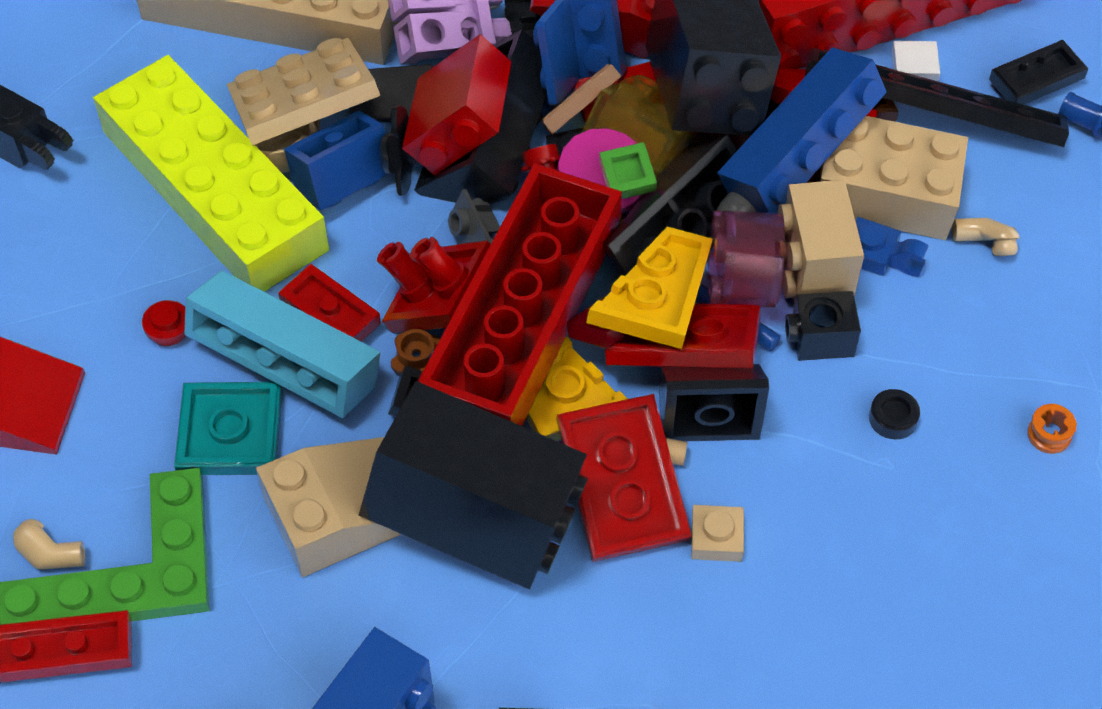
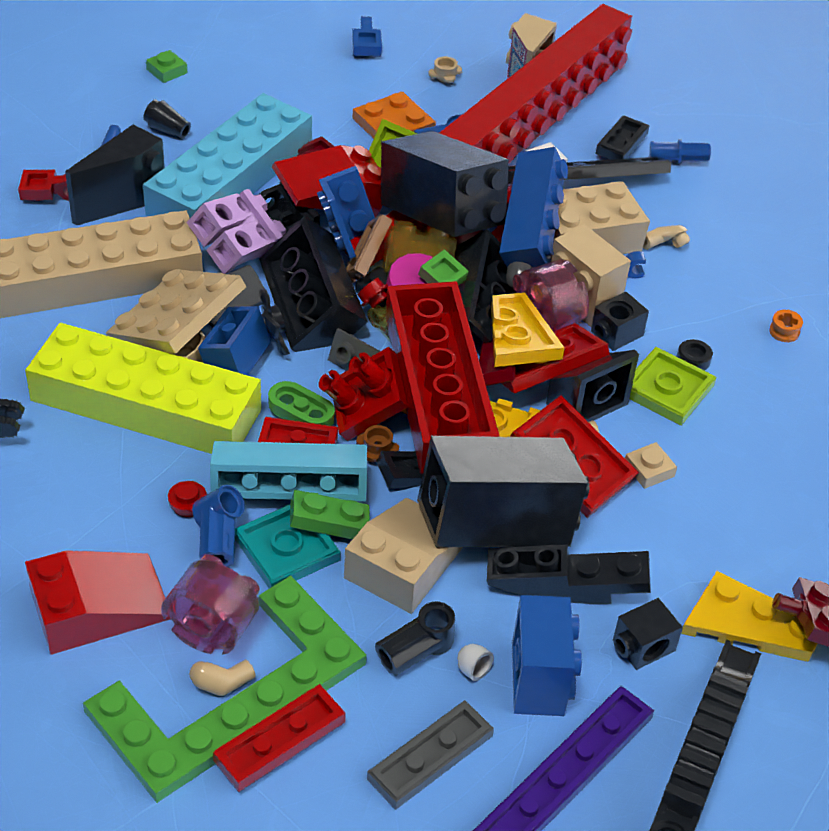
camera: 35 degrees left, 10 degrees down
(76, 463) = (211, 605): none -> clear pink brick
(161, 375) = (216, 518): none -> blue piece
(267, 612) = (417, 639): none -> black piece
(288, 414) = (327, 514): none -> bright green plate
(314, 671) = (475, 661): none -> white hinge
(363, 272) = (300, 404): none -> bright green plate
(457, 105) = (298, 276): red brick -> none
(496, 624) = (556, 573): none -> black slope
(827, 439) = (670, 385): none -> lime tile

